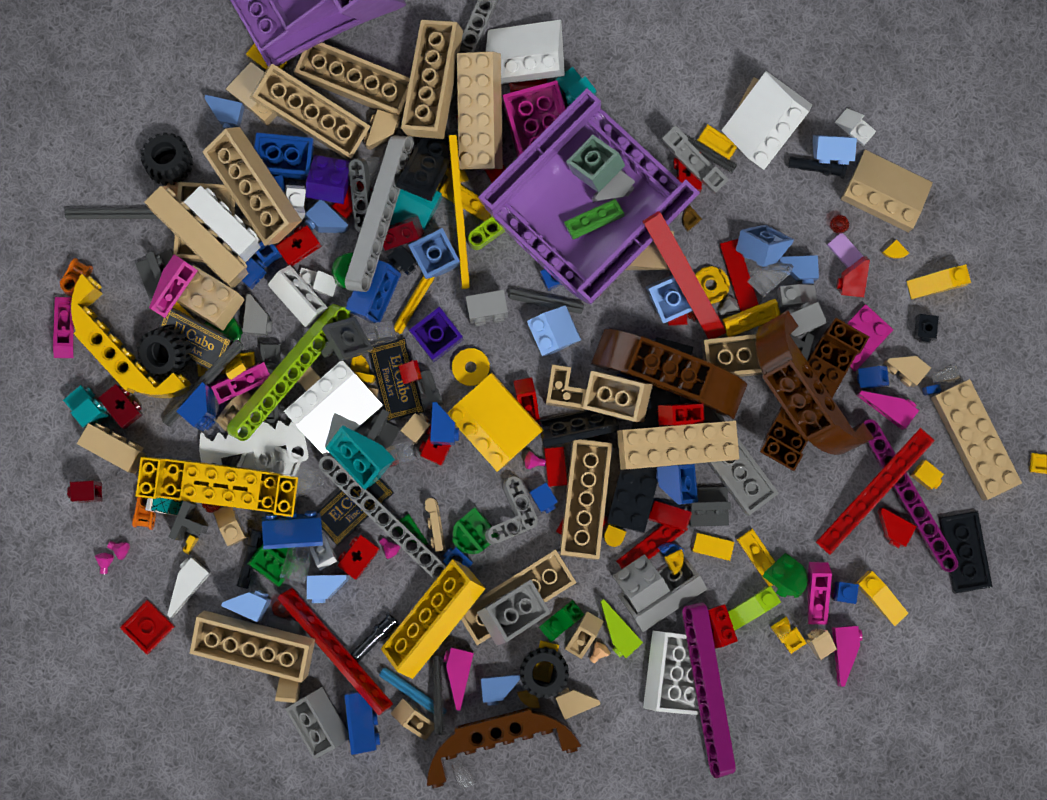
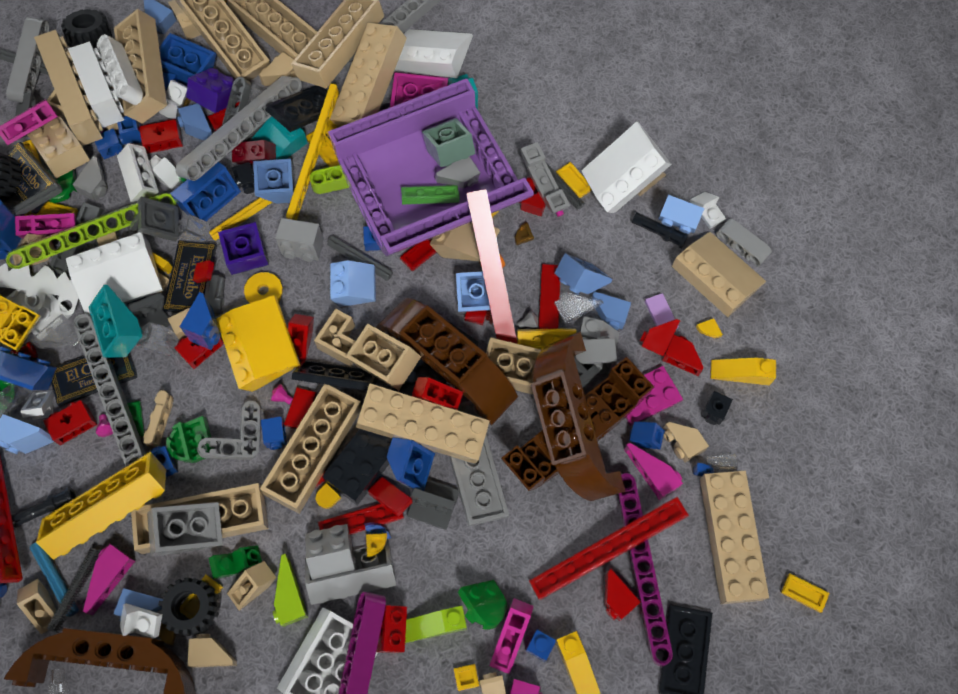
camera: 25 degrees right, 15 degrees down
(125, 214) = (27, 60): none -> light grey beam
(235, 368) = (45, 208): yellow tile -> none
(241, 202) = (119, 70): none -> white beam
(360, 364) = (164, 251): yellow tile -> none
(511, 699) = (140, 621): none -> white slope
(600, 651) = (260, 609): light nougat rock -> none
(713, 546) = (422, 545): yellow tile -> none
(721, 280) = (530, 293): yellow tile -> none
(756, 552) = (463, 566): yellow tile -> none
(782, 629) = (459, 660): yellow tile -> none
(842, 220) = (663, 285): clear red plate -> none
(881, 287) = (683, 355): none -> red slope
(901, 150) = (744, 241): none -> light grey beam
(927, 475) = (670, 554): yellow brick -> none

